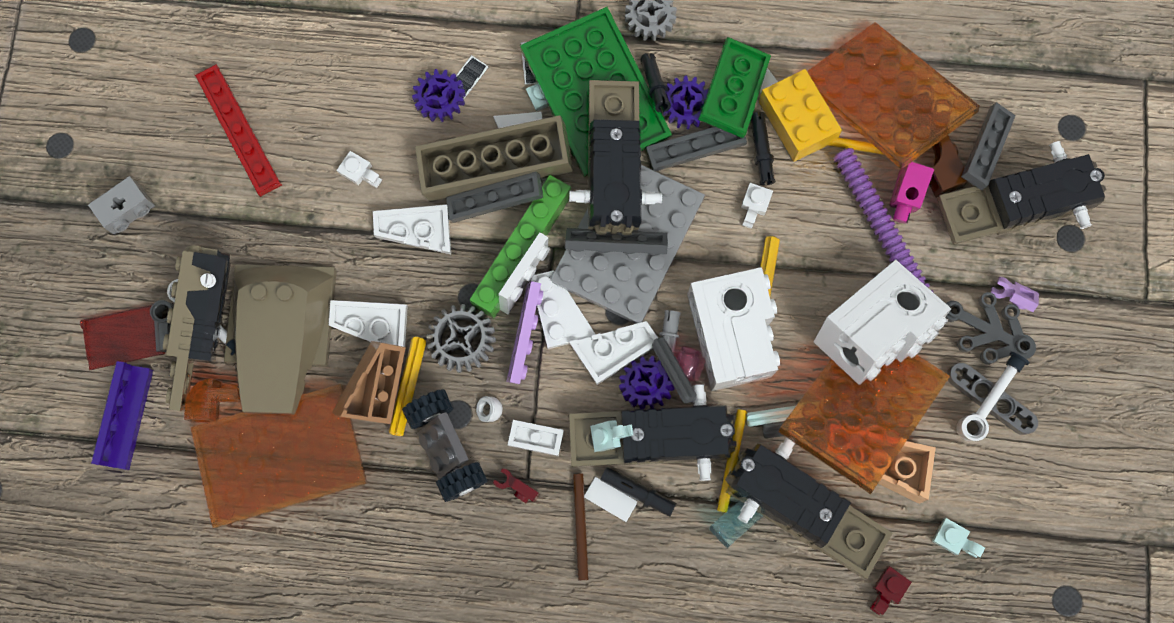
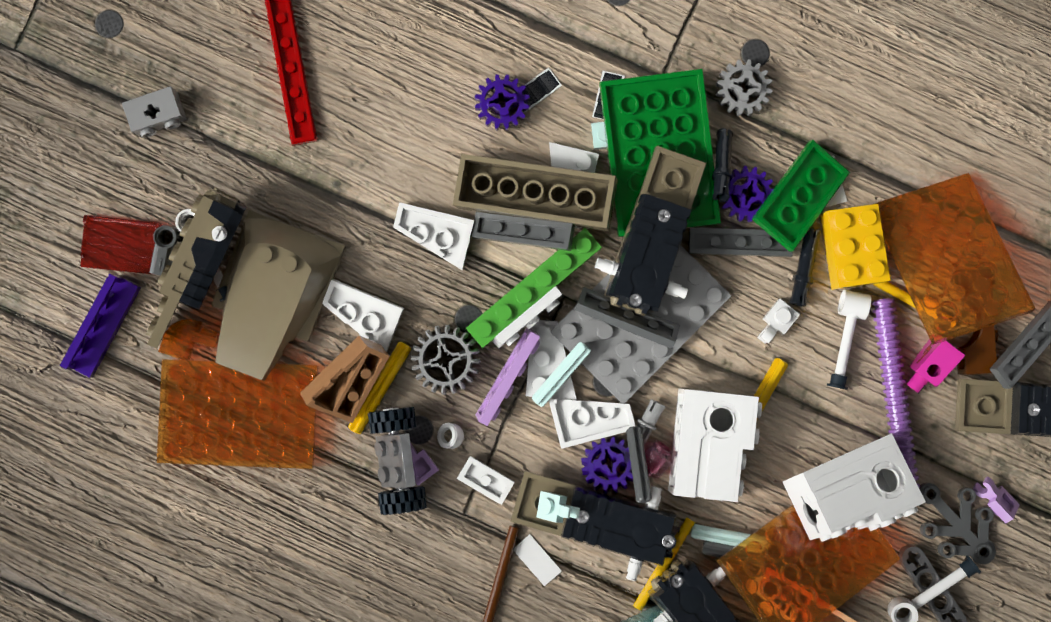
camera: 15 degrees right, 10 degrees up
(358, 169) = (397, 152): white plate -> none
(472, 445) = (423, 465): none -> lavender plate
(522, 490) = (457, 526): dark red plate -> none
(573, 313) = (561, 374): none -> light aqua axle
(639, 492) = (565, 564): black pin -> none
(818, 167) = (854, 307): none -> white piece

